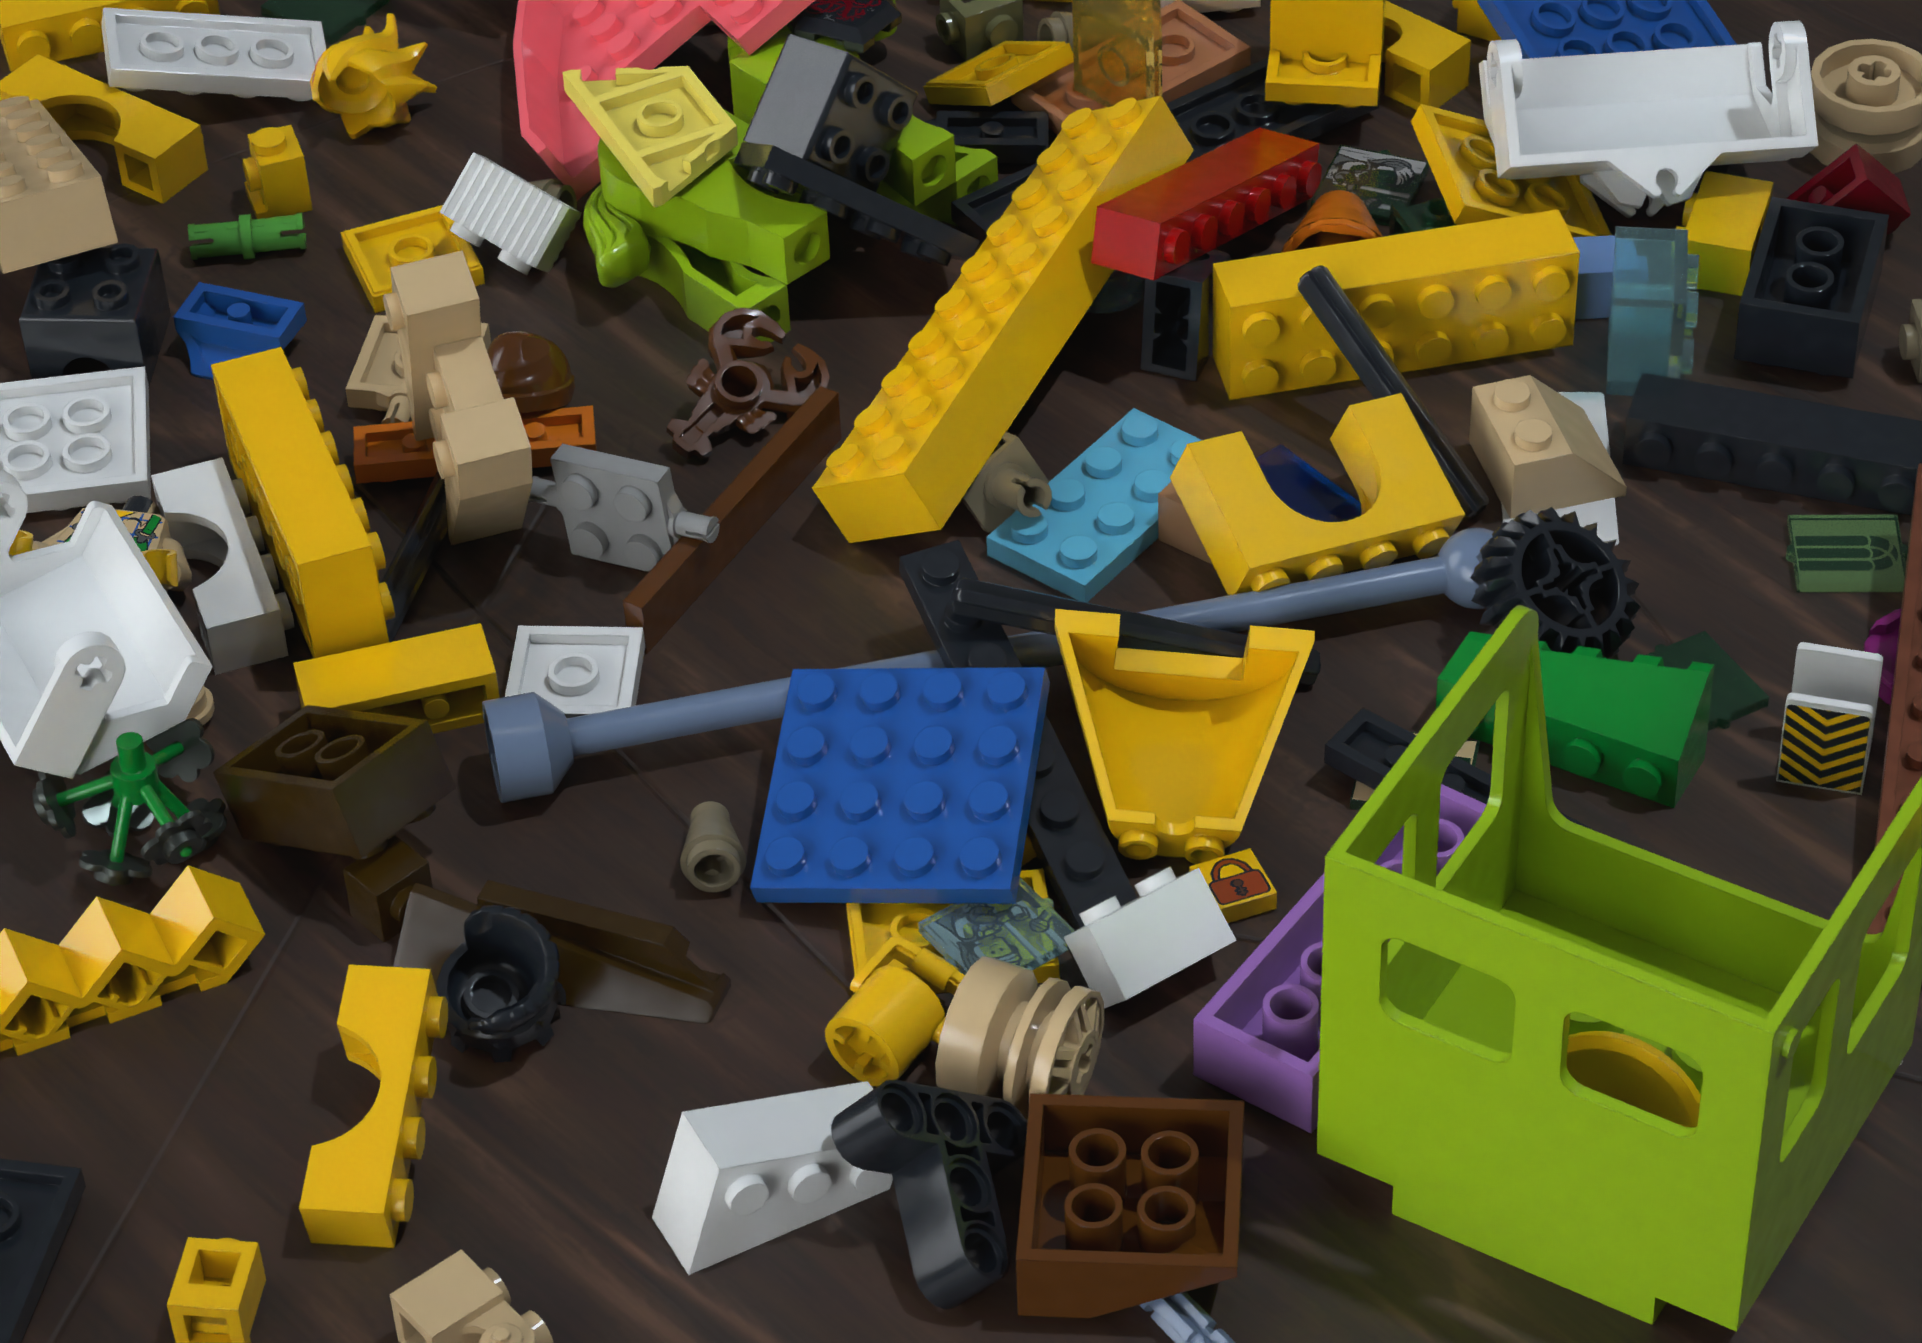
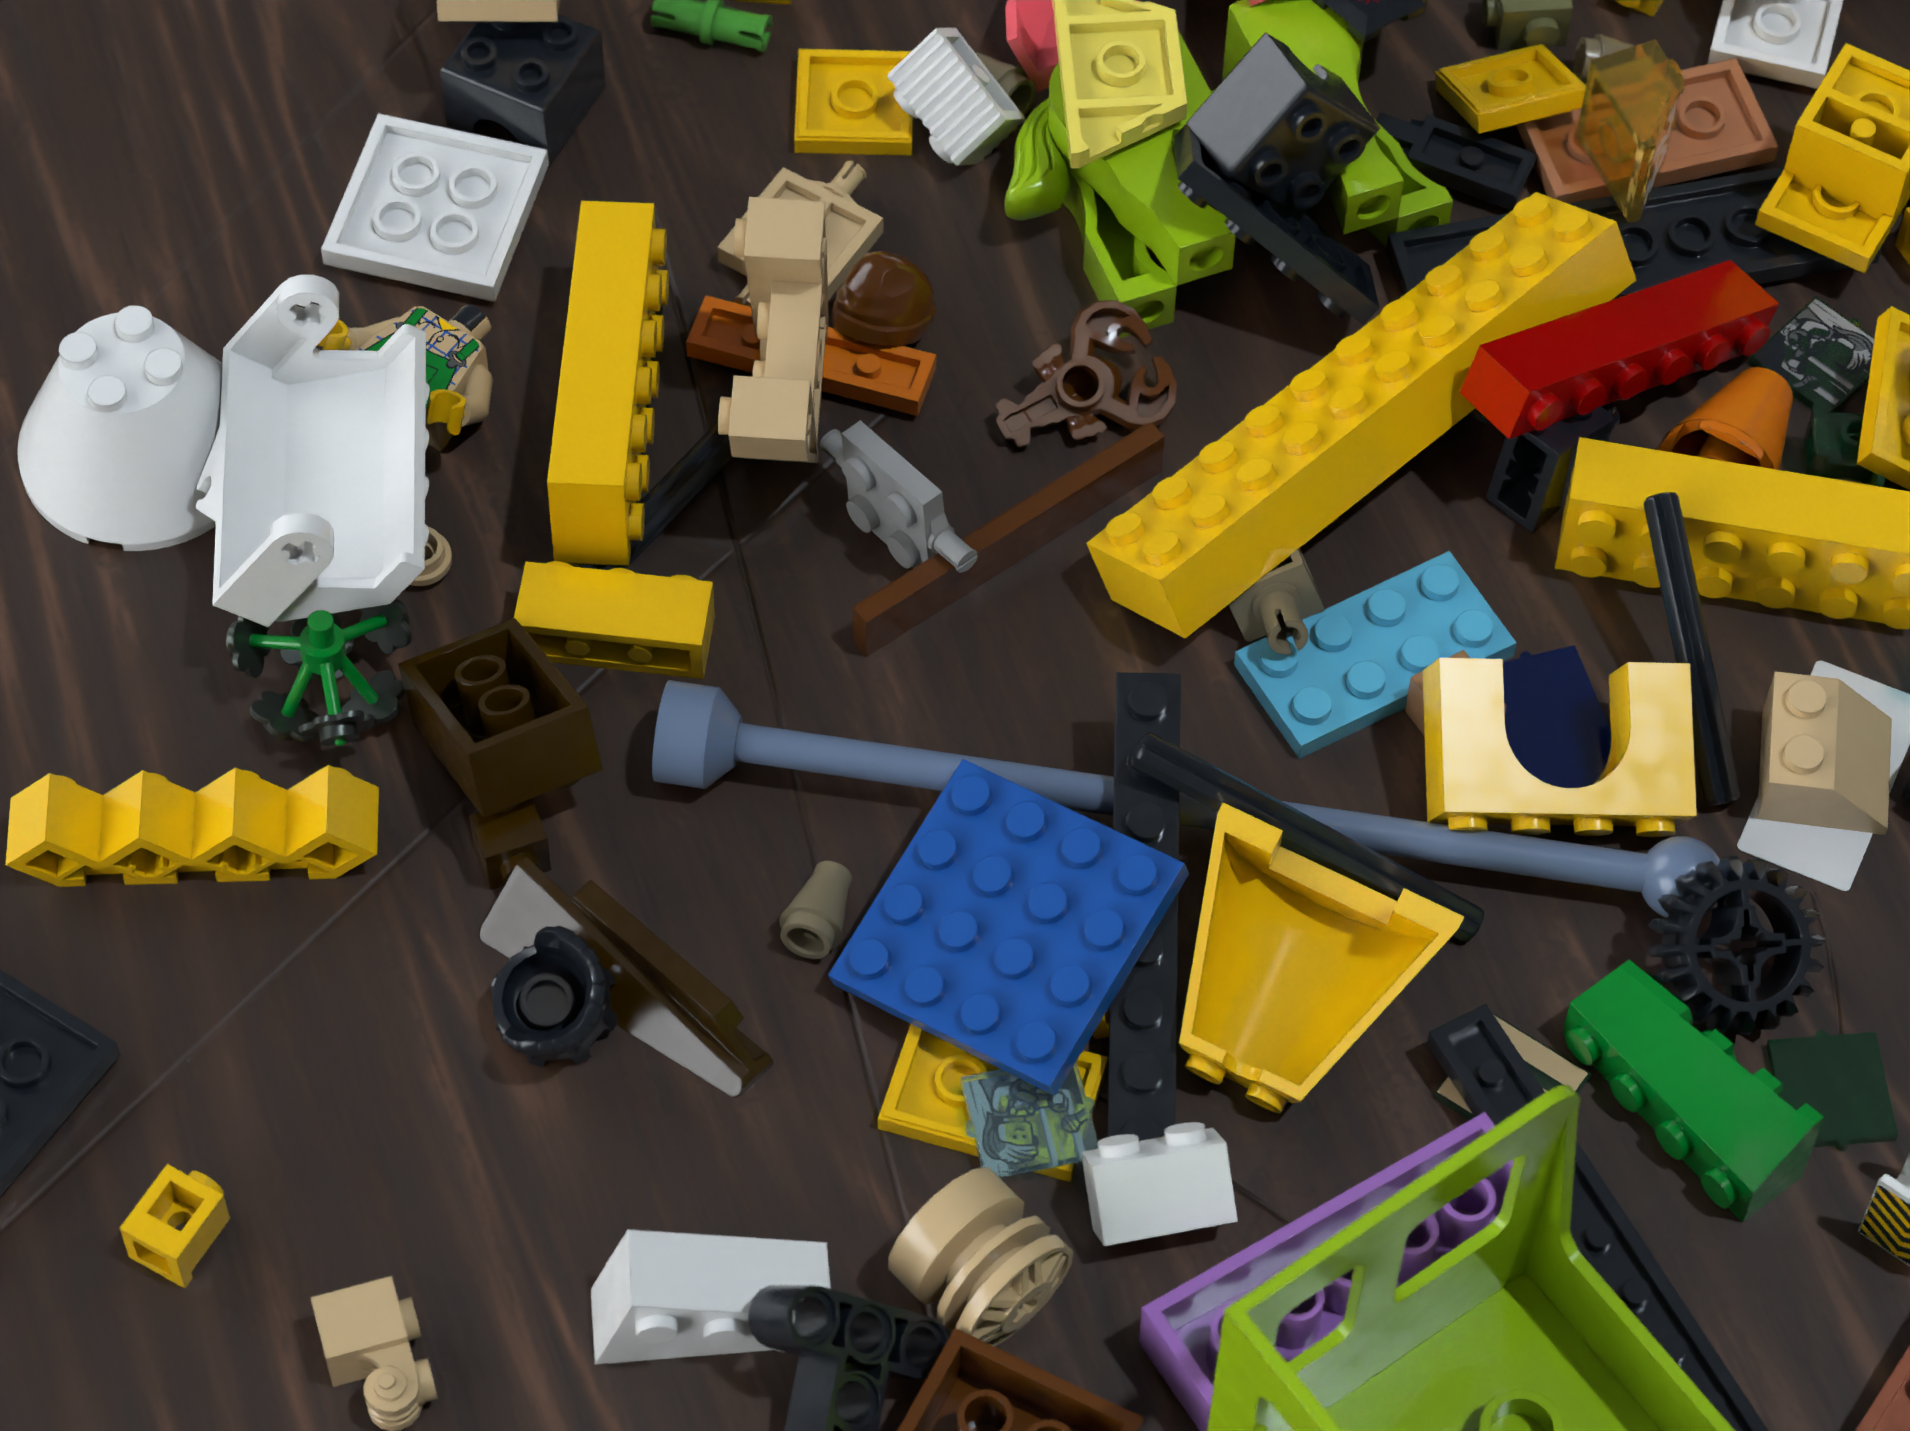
camera: 20 degrees right, 15 degrees up
(234, 323) = (649, 135): blue slope -> none
(237, 605) = (512, 465): white arch -> none
(360, 1181) = (346, 1157): yellow arch -> none
(578, 666) = (782, 664): white plate -> none
(891, 1012) = (884, 1173): yellow piece -> none
(1239, 885) = (1275, 1147): tile -> none

